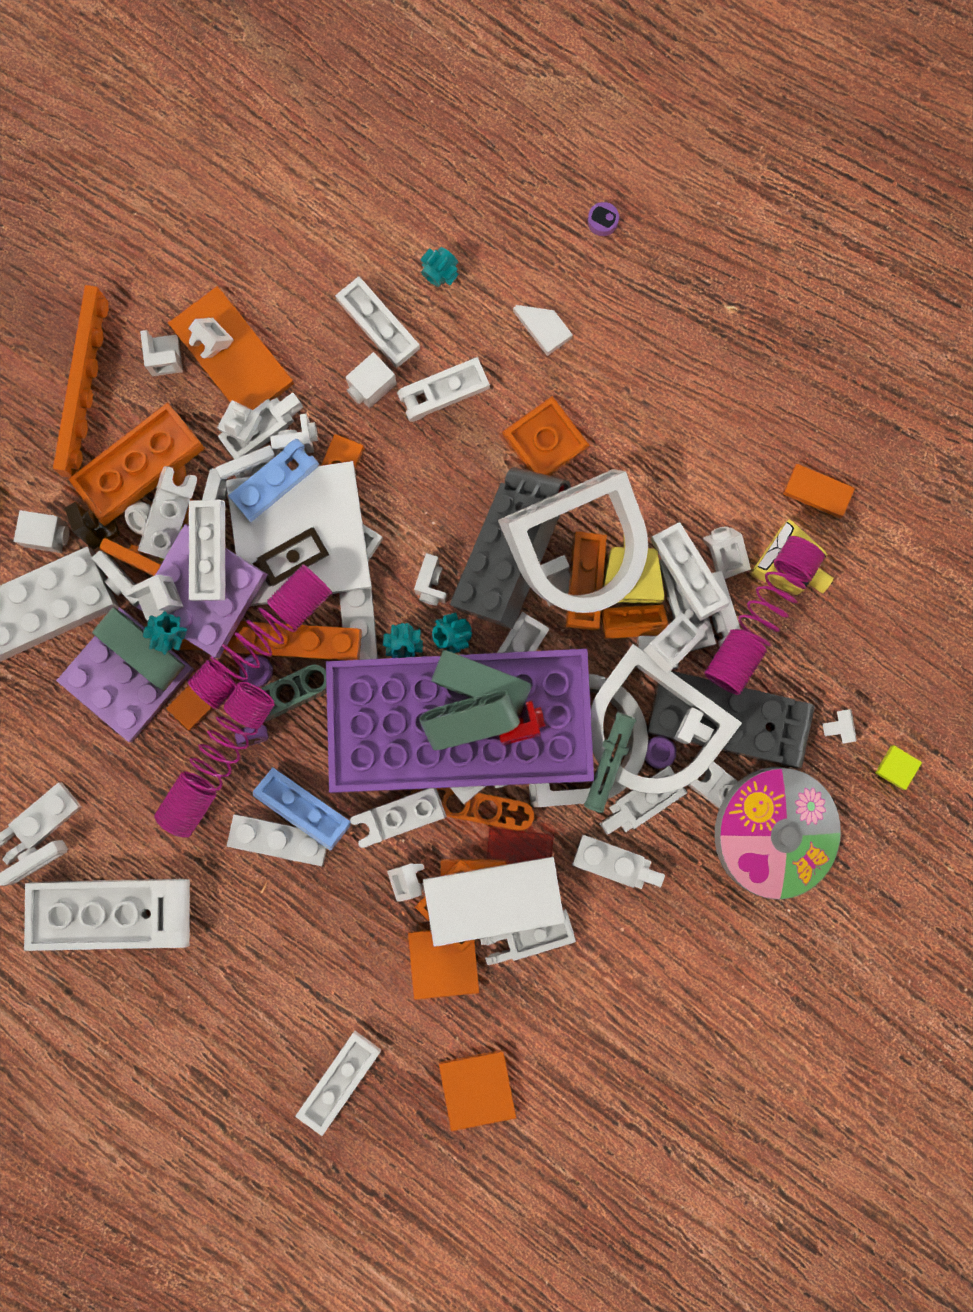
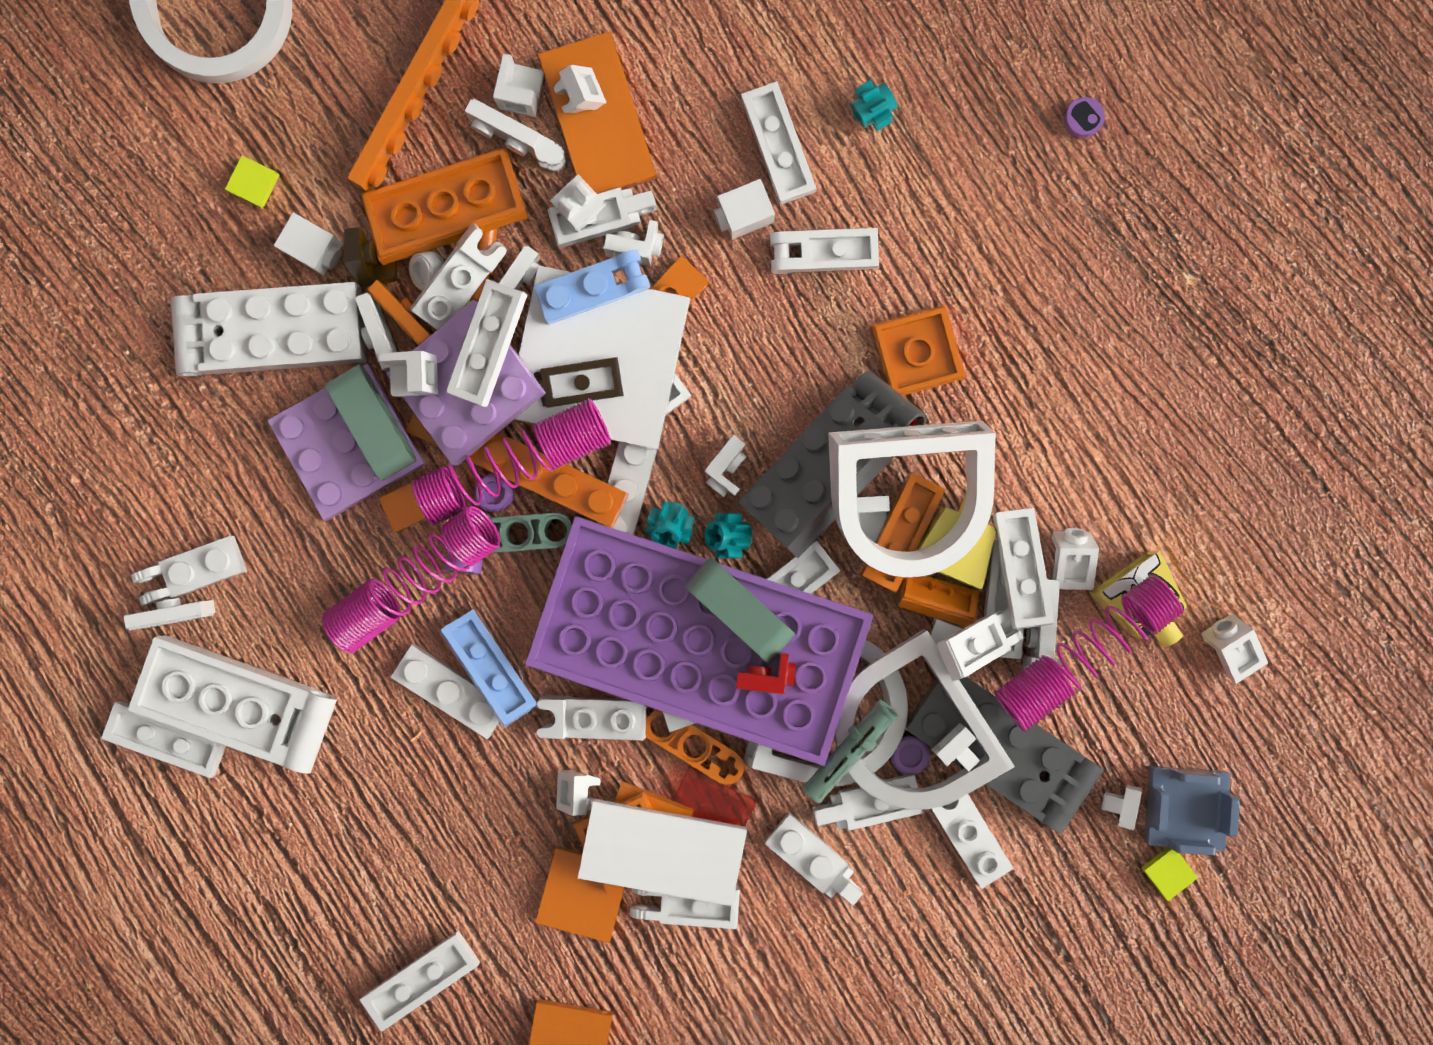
camera: 20 degrees right, 5 degrees up
(62, 966) = (162, 741): none -> white plate
(164, 632) = (397, 413): teal gear -> none
(175, 390) = (517, 136): none -> white hinge
(247, 464) = (568, 255): white tile -> none
(469, 720) = (711, 649): sand green beam -> none
(544, 327) = (967, 220): white tile -> none
(777, 833) = (1006, 895): dish -> none
(818, 491) = (1205, 528): orange tile -> none
(878, 572) = (1236, 647): none -> white bracket
(894, 711) = (1190, 810): none -> sand blue panel

